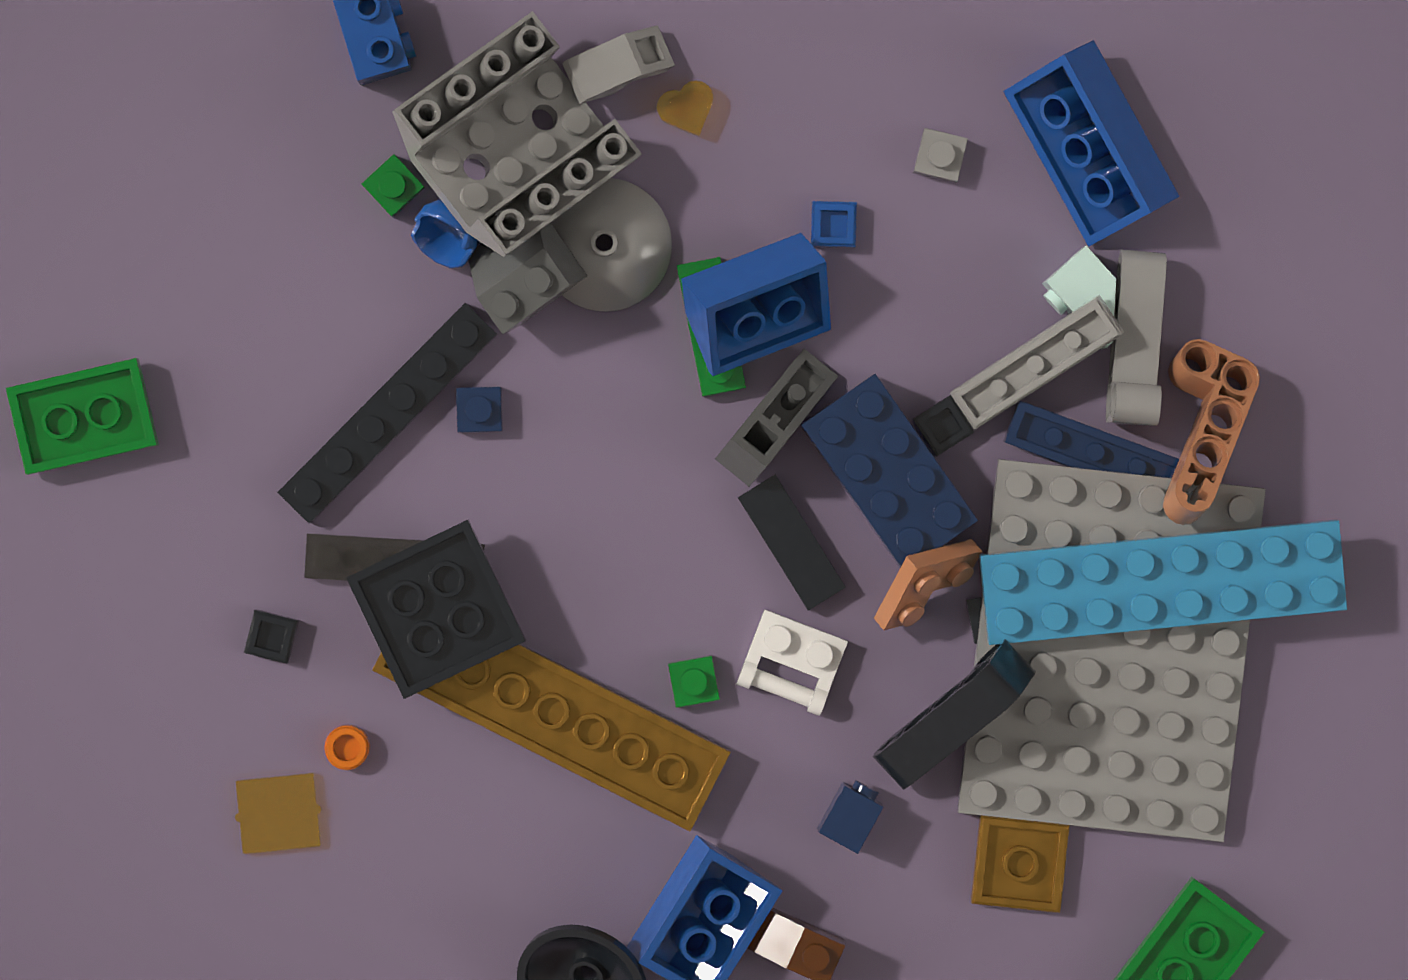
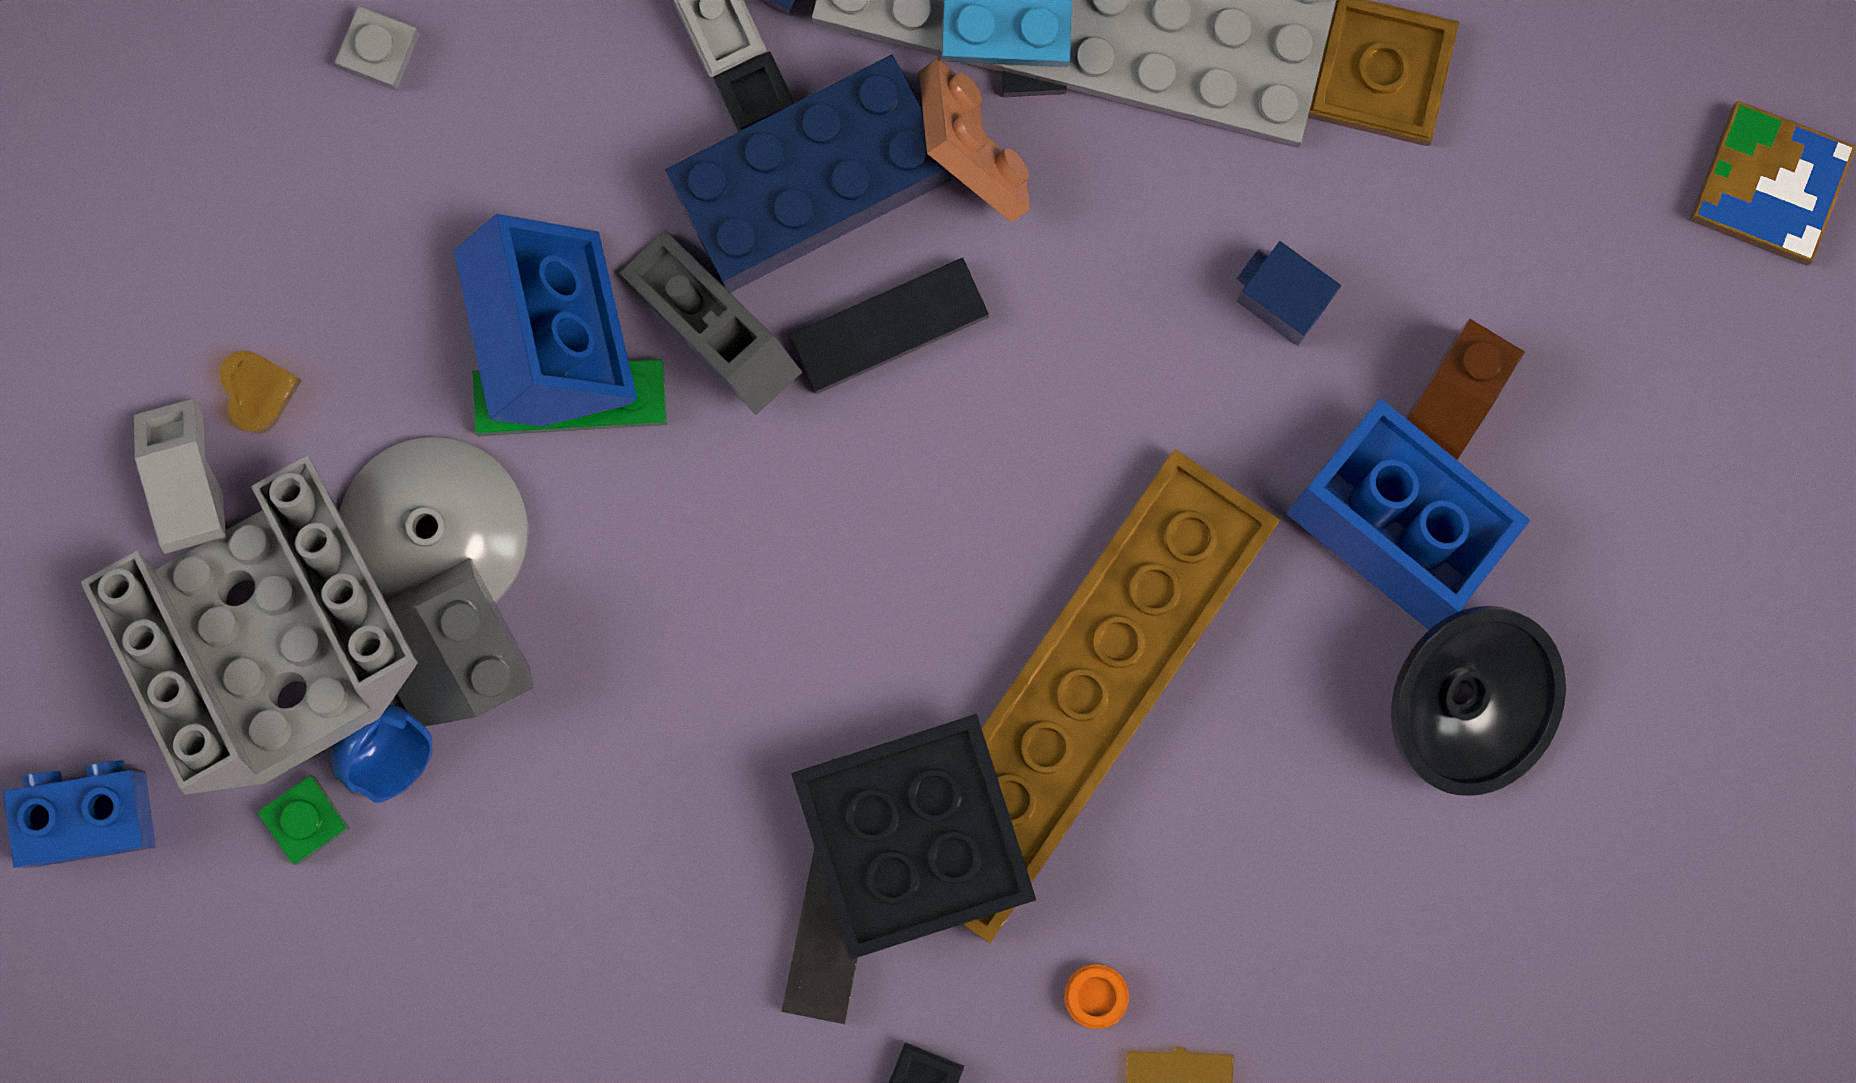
camera: 80 degrees left, 5 degrees down
(387, 413) = (626, 873): black plate -> none
(479, 409) = (639, 740): dark blue plate -> none
(693, 681) = (1067, 489): green plate -> none
(797, 648) = (1040, 336): white plate -> none
(833, 224) = (450, 207): blue tile -> none
(956, 715) = (1150, 92): black beam -> none

